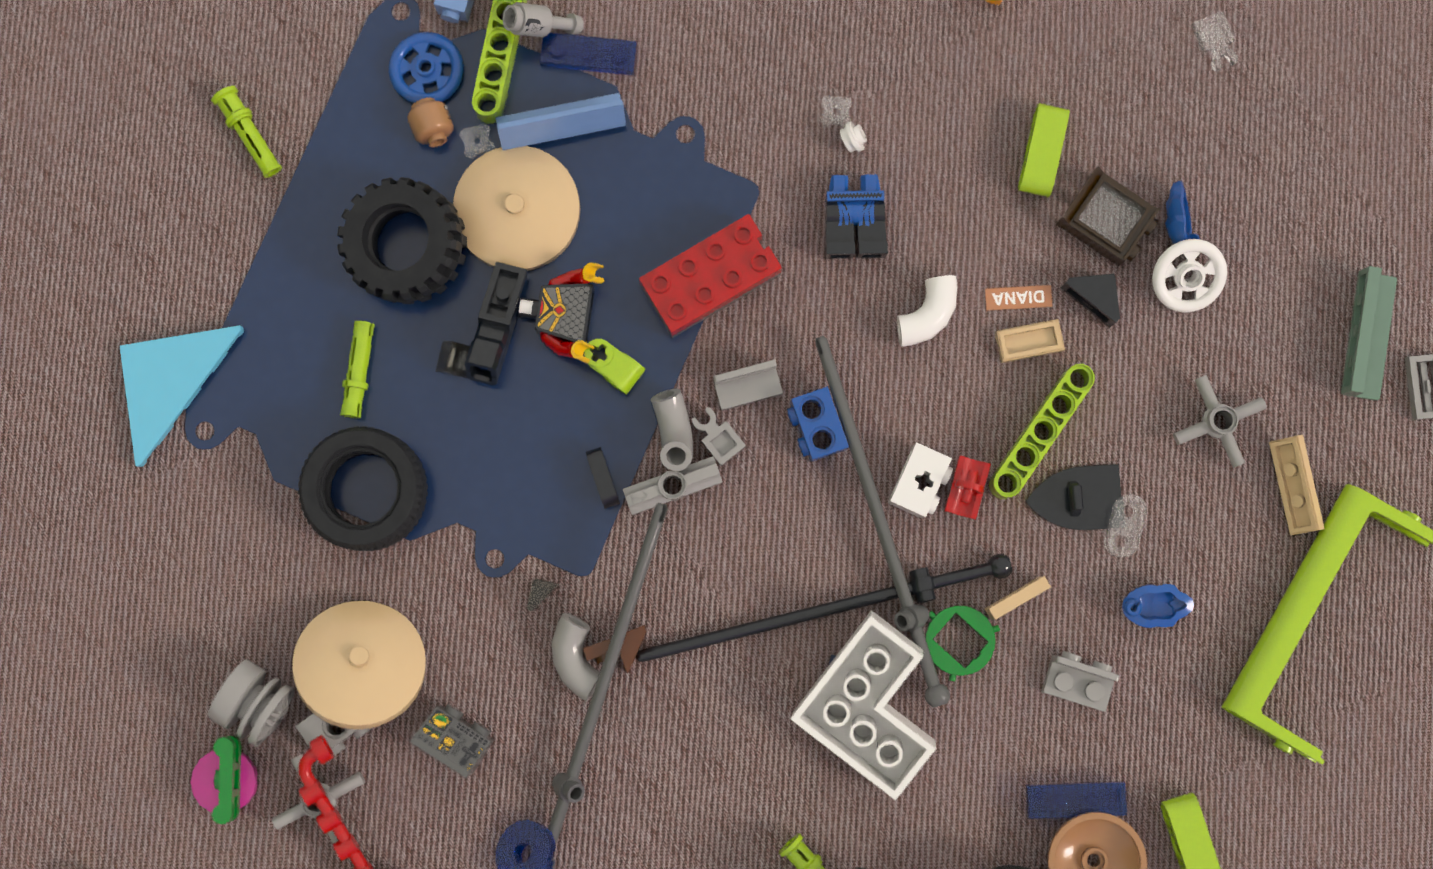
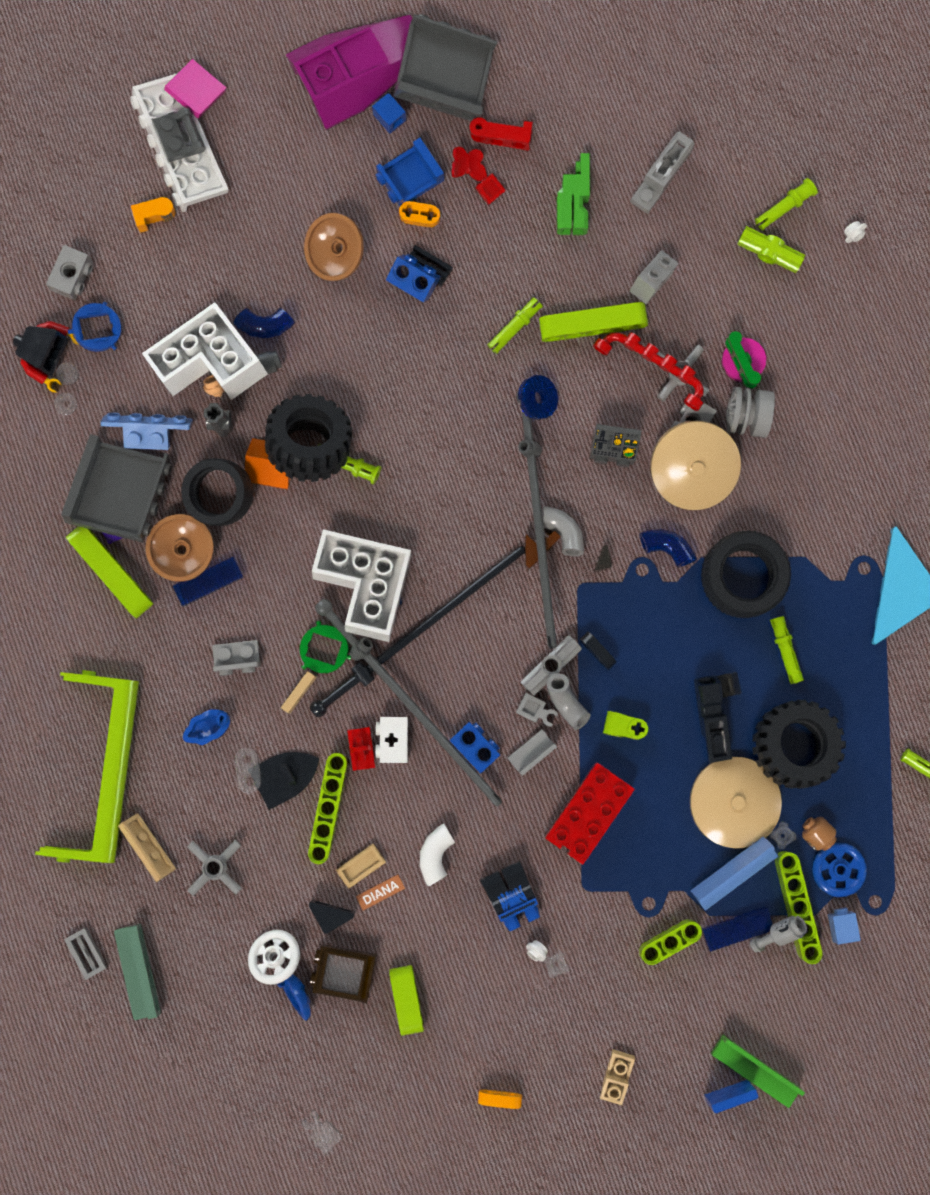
camera: 155 degrees right, 0 degrees up
(443, 577) = (670, 543): none -> clear blue cylinder
(565, 311) = (672, 746): torso -> none
(693, 64) = (658, 942): none -> lime beam

